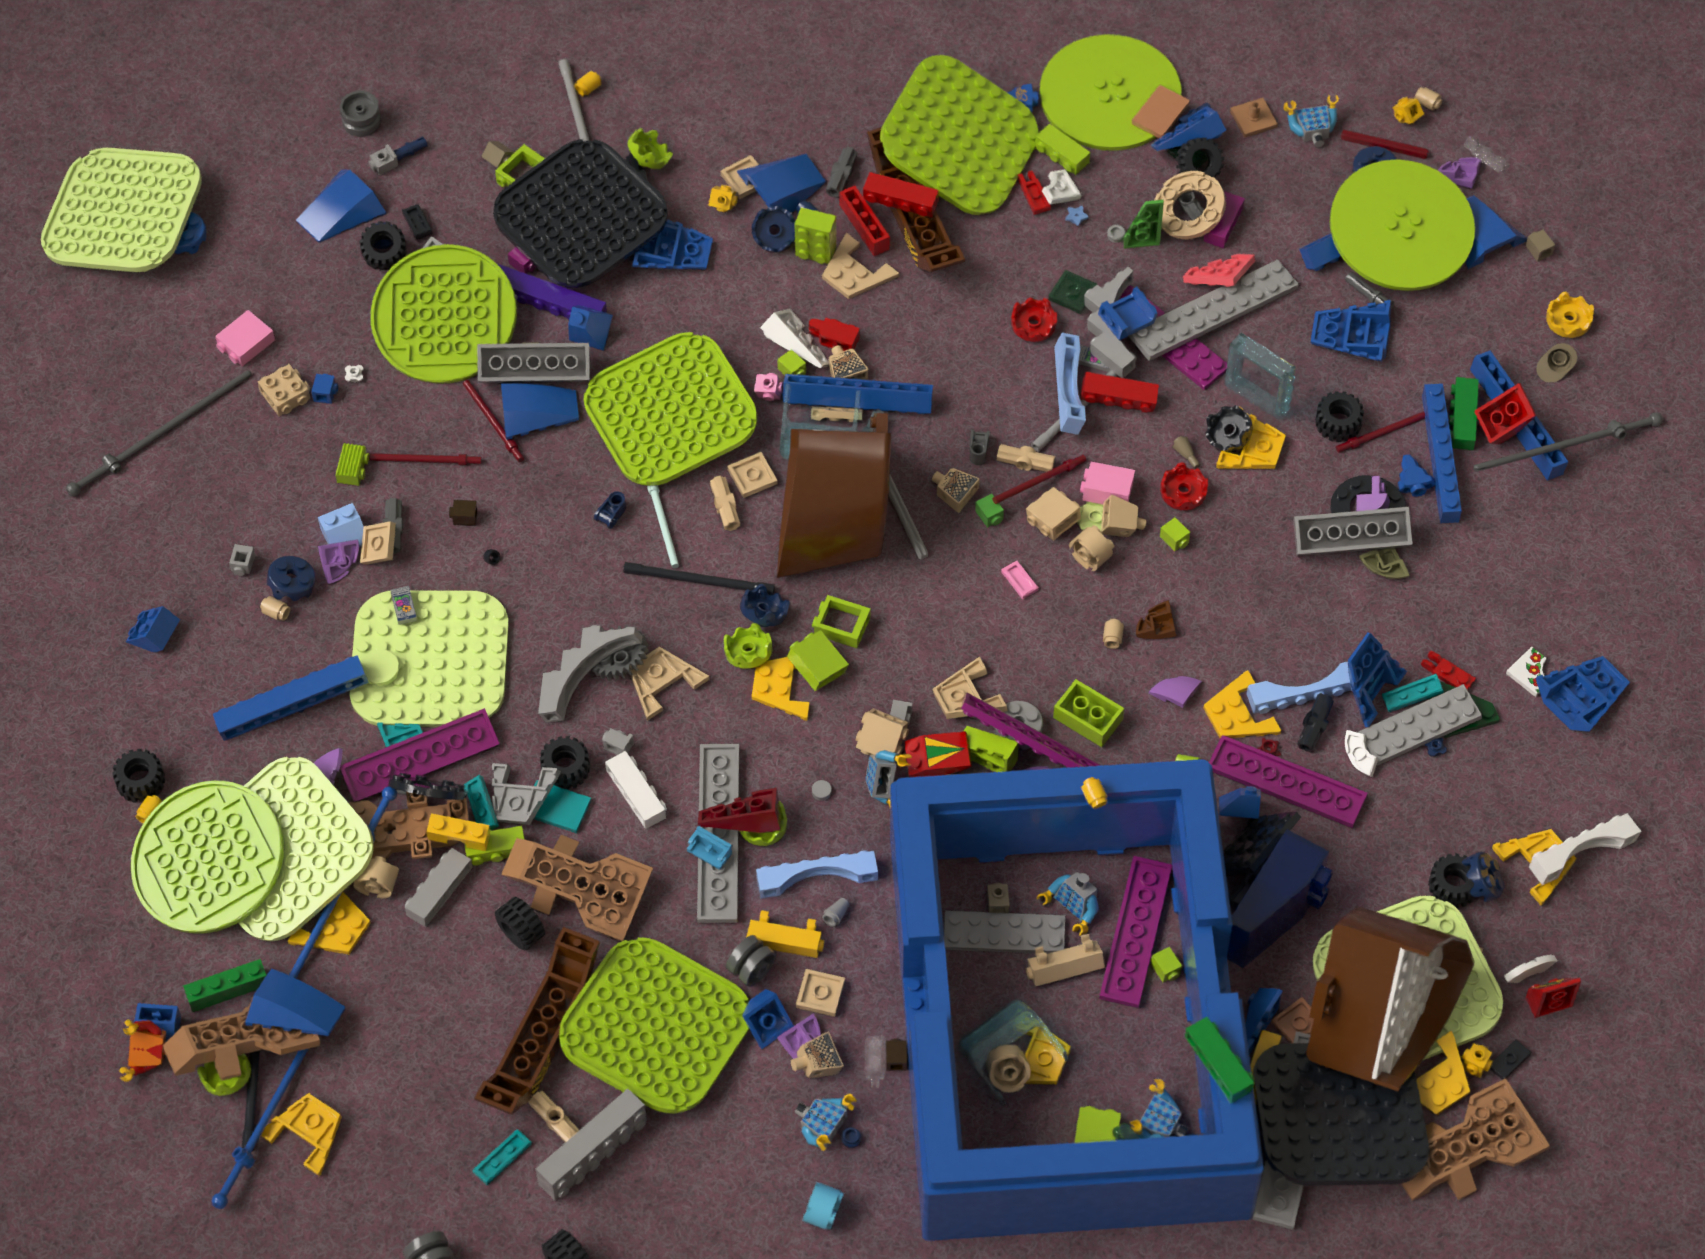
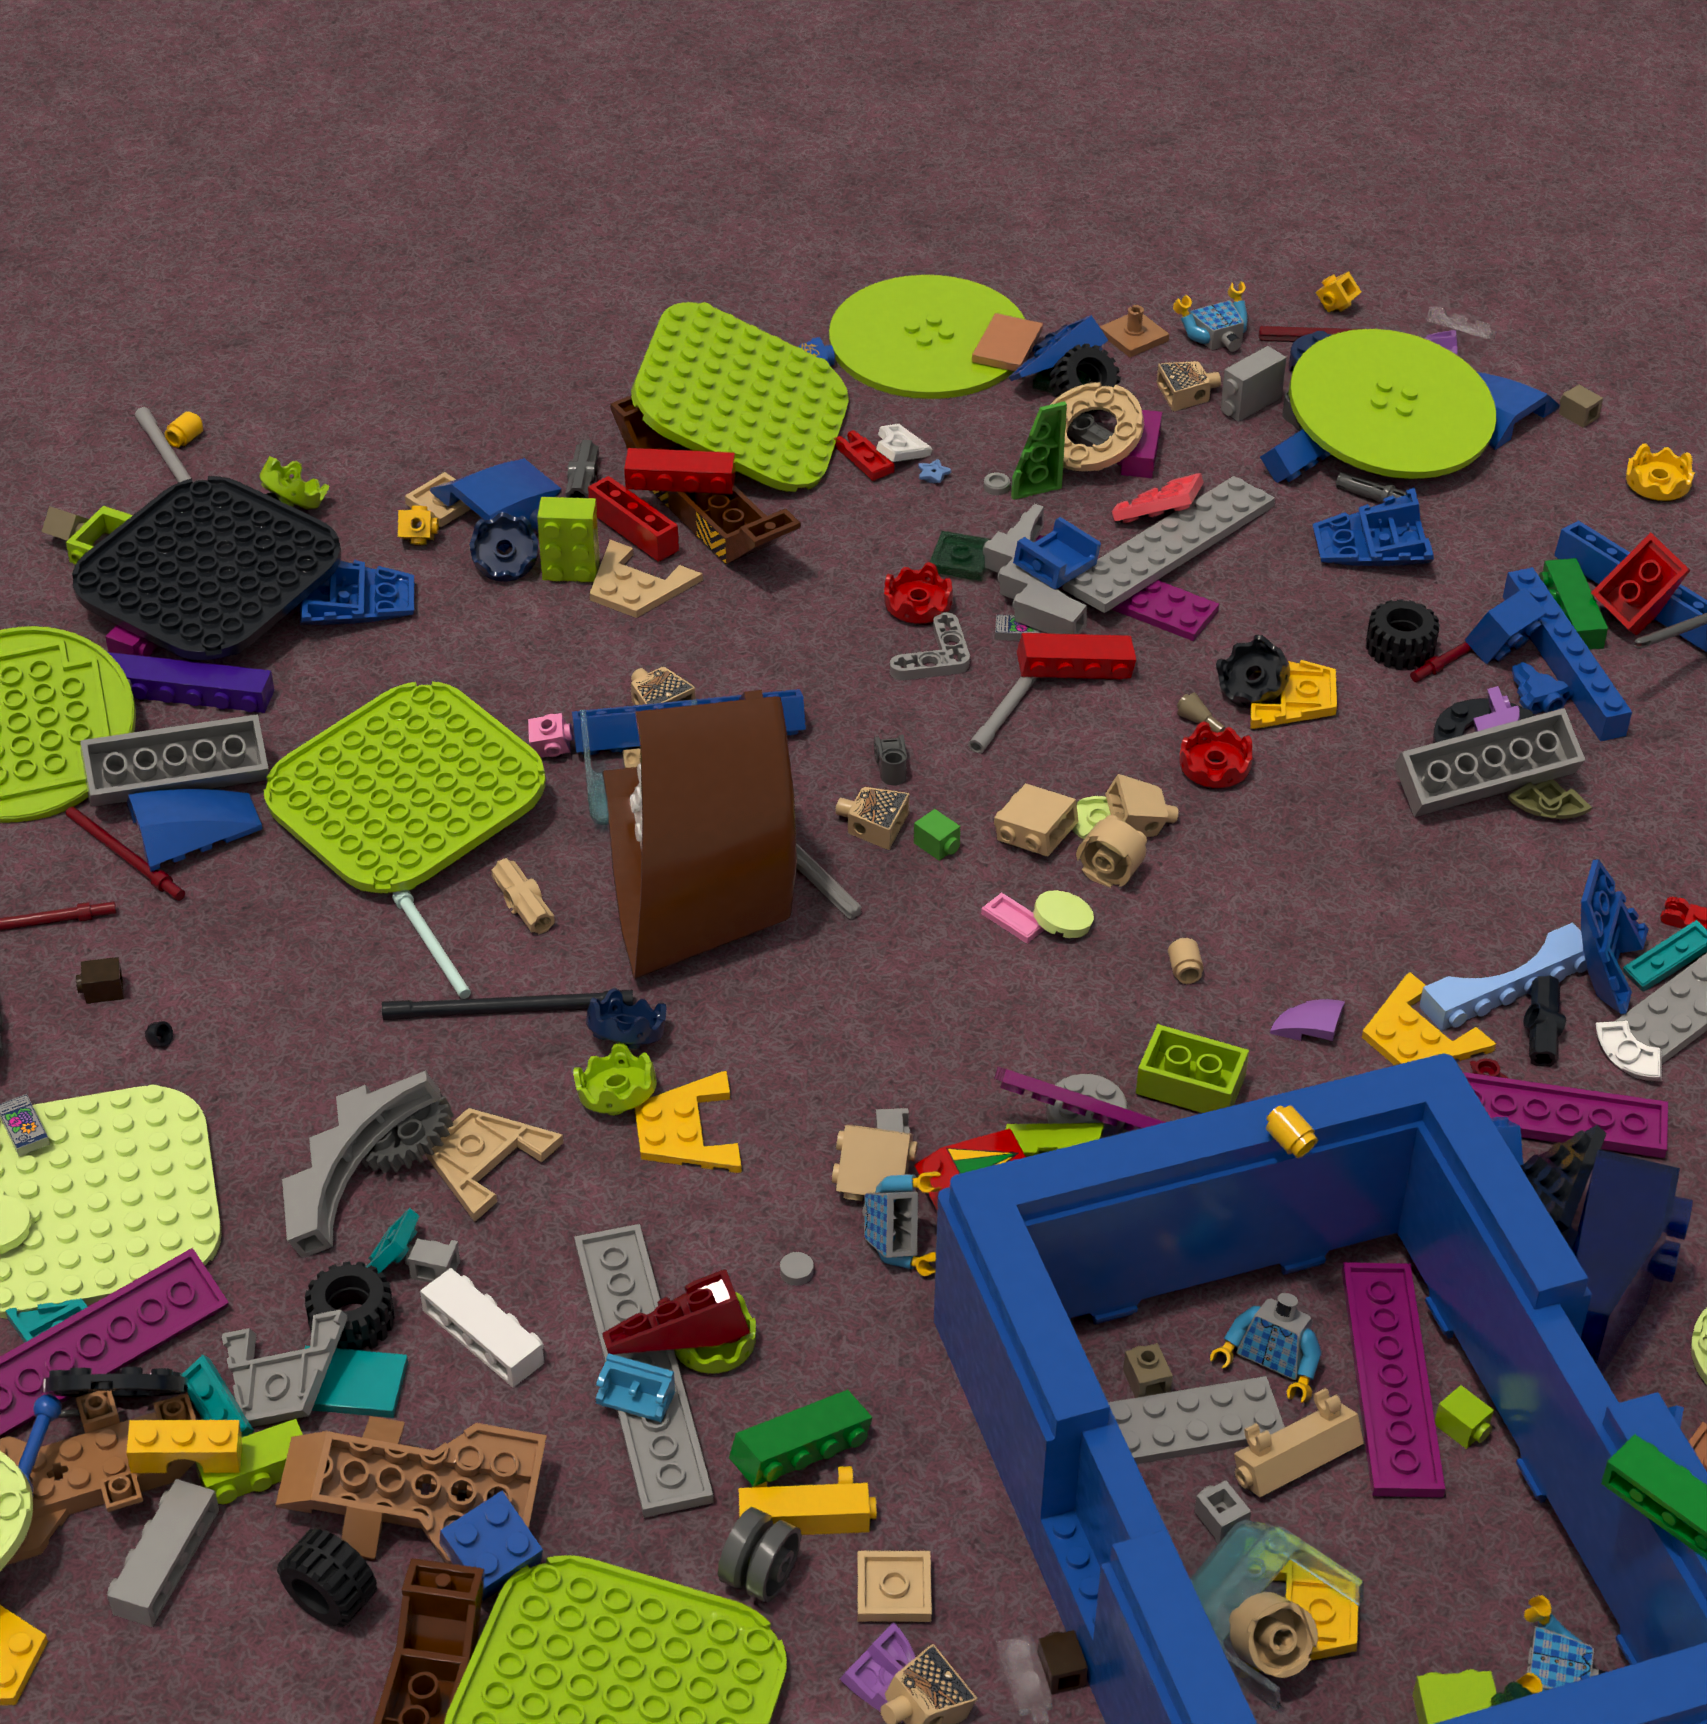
camera: 15 degrees left, 15 degrees down
(377, 878) = (47, 1557): tan brick -> none
(589, 326) = (254, 695): blue slope -> none
(597, 727) = (394, 1241): none -> teal wing
(609, 924) = (491, 1539): none -> blue brick
(610, 512) = (342, 934): dark blue piece -> none
(752, 474) = (555, 852): tan plate -> none
(766, 1018) = (813, 1646): blue slope -> none
(786, 330) = (555, 664): white wedge -> none
(791, 364) = (574, 699): lime brick -> none
(792, 897) = (800, 1438): none -> green brick
(817, 660) = (734, 1077): lime brick -> none
(834, 333) = (625, 655): red hinge -> none
(835, 913) = (880, 1450): light grey cone -> none
(837, 635) = (755, 1039): lime window -> none
(857, 867) = (893, 1372): light blue arch -> none
(953, 690) = (971, 1086): tan wing -> none
(1010, 982) = (1220, 1509): none -> light grey brick
(1025, 458) = (967, 761): tan piece -> none
(1035, 372) = (942, 658): none -> light grey beam
(1049, 584) = (1063, 913): none -> yellowish green tile
(1062, 149) = (887, 401): lime brick -> none
(1067, 465) = (1031, 761): dark red bar -> none
(1070, 407) = (983, 626): light blue arch -> none
(1106, 480) = (1093, 768): bright pink brick -> none
(1157, 623) = (1247, 936): reddish brown brick -> none
(1175, 534) = (1227, 817): lime brick -> none
(1245, 347) = (1286, 557): clear light blue window -> none
(1272, 172) = (1186, 383): none -> tan torso
(1315, 185) = (1253, 383): none -> light grey brick
(1407, 427) = (1506, 627): none -> blue brick
(1428, 98) = (1362, 276): tan brick -> none
(1556, 362) = (1673, 521): dark tan piece -> none

